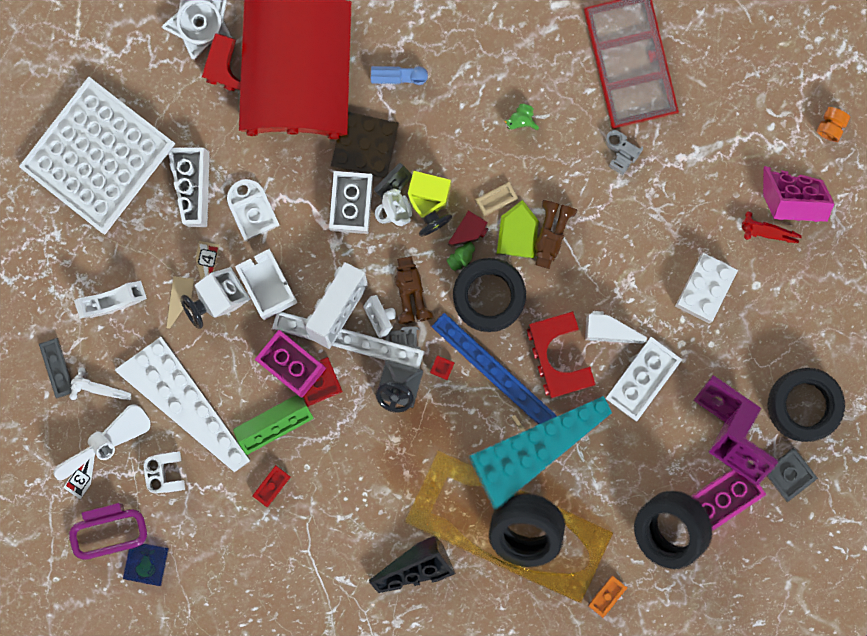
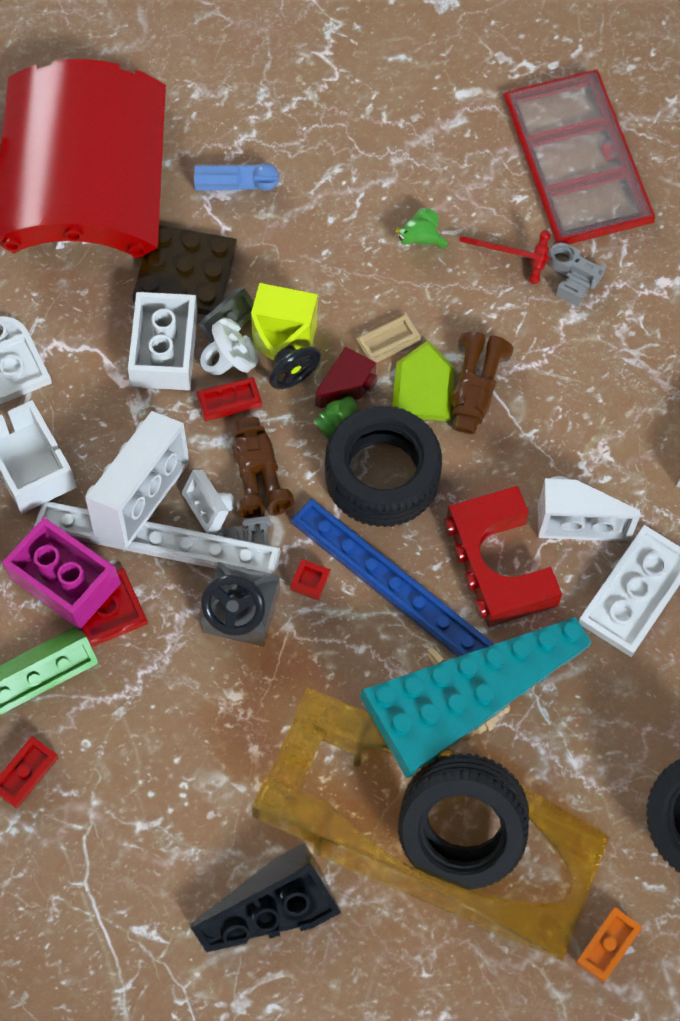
camera: 10 degrees left, 20 degrees down
(393, 242) = (229, 399): none -> red plate
(598, 141) = (539, 256): none -> red piece

